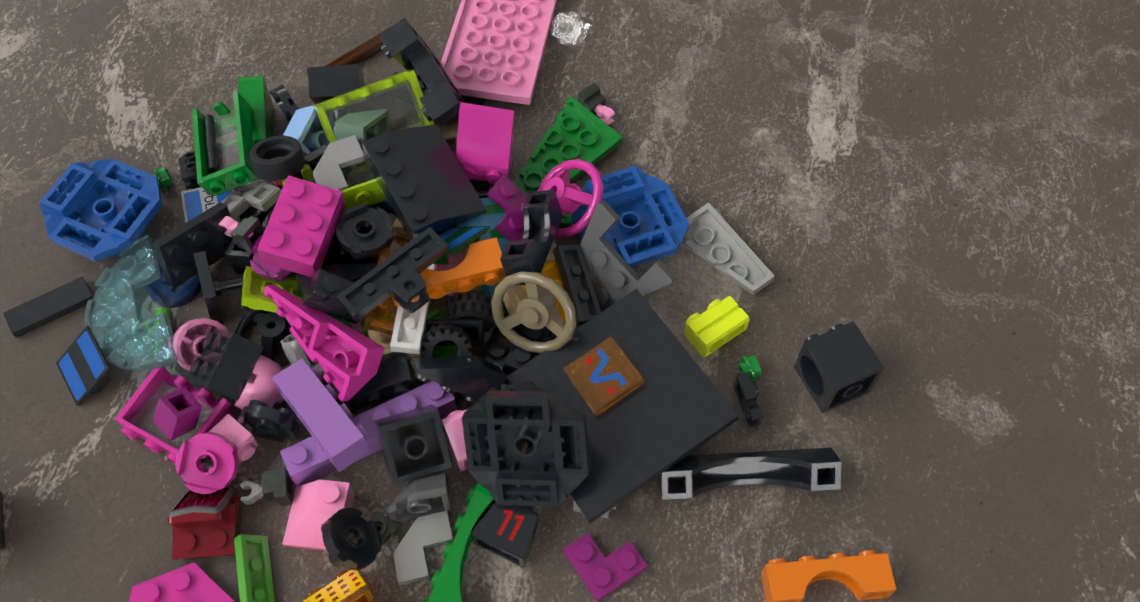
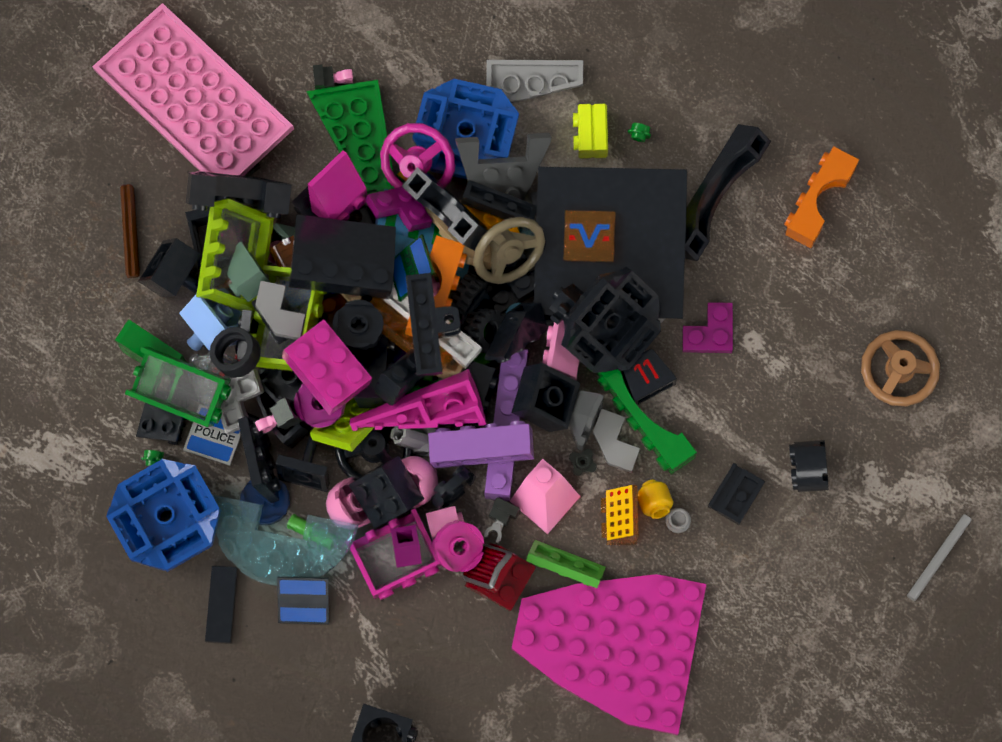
camera: 50 degrees left, 15 degrees up
(210, 143) = (166, 398): black piece -> none
(284, 101) = (159, 318): black plate -> none
(340, 547) = (587, 480): black plate -> none
(570, 29) = (237, 44): clear brick -> none
(747, 394) = (659, 149): black plate -> none
(838, 366) = (685, 73): black brick -> none

